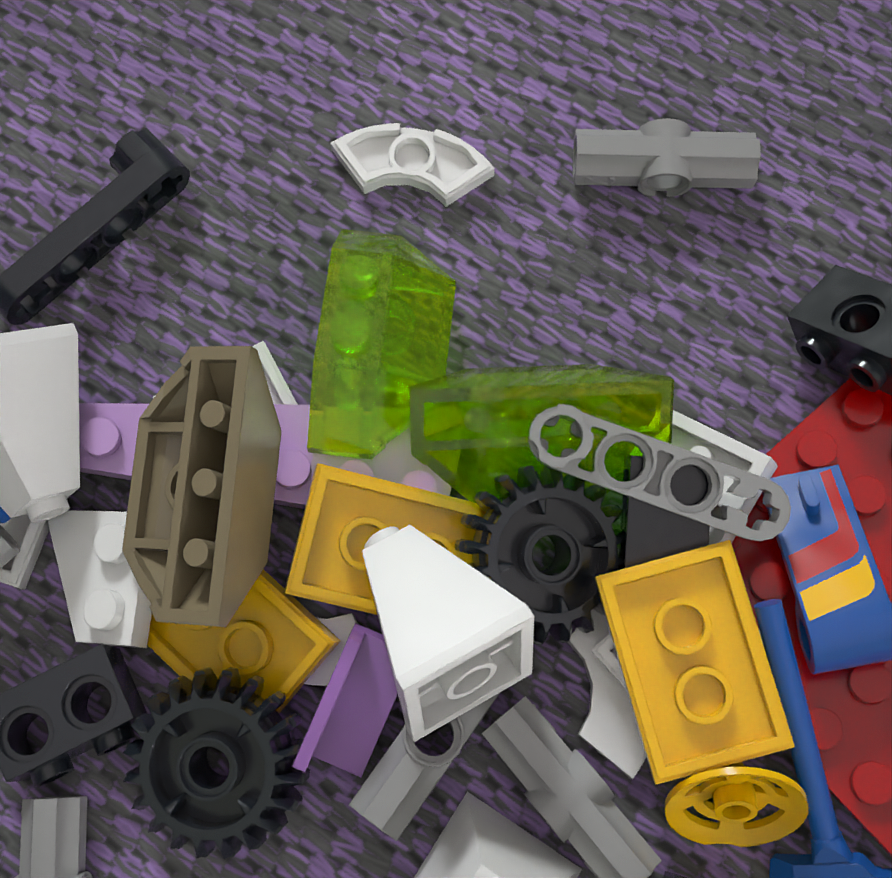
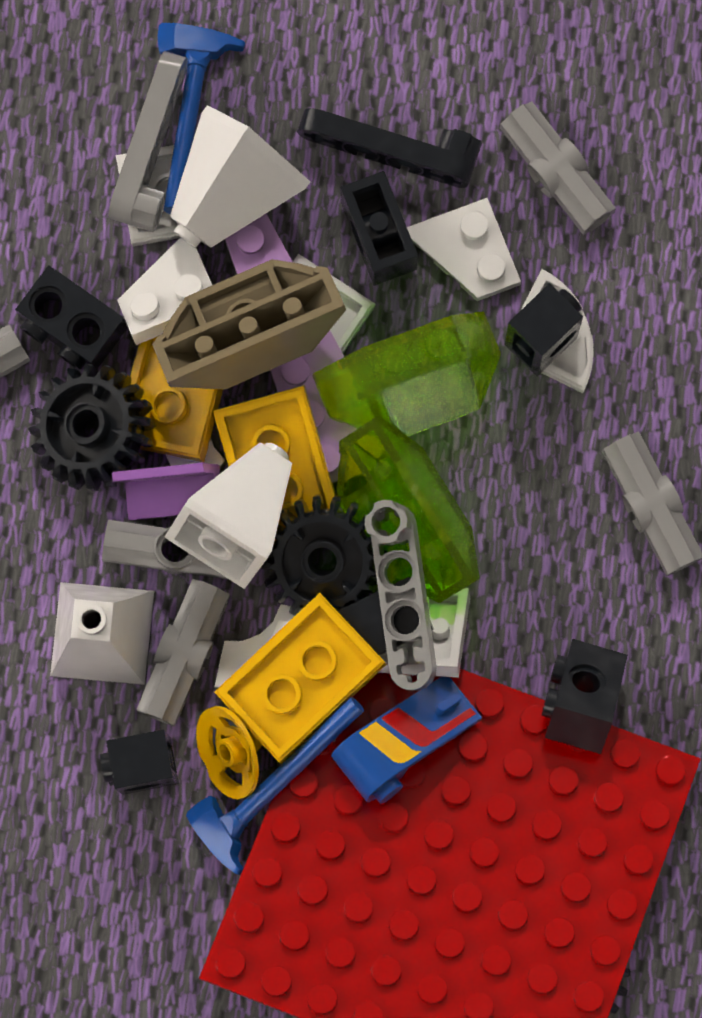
camera: 60 degrees right, 5 degrees up
(177, 283) = (378, 228): none -> black brick
(226, 69) = (558, 167): none -> light grey piece
(261, 207) = (469, 249): none -> white wing
(409, 151) = (544, 328): none -> black brick

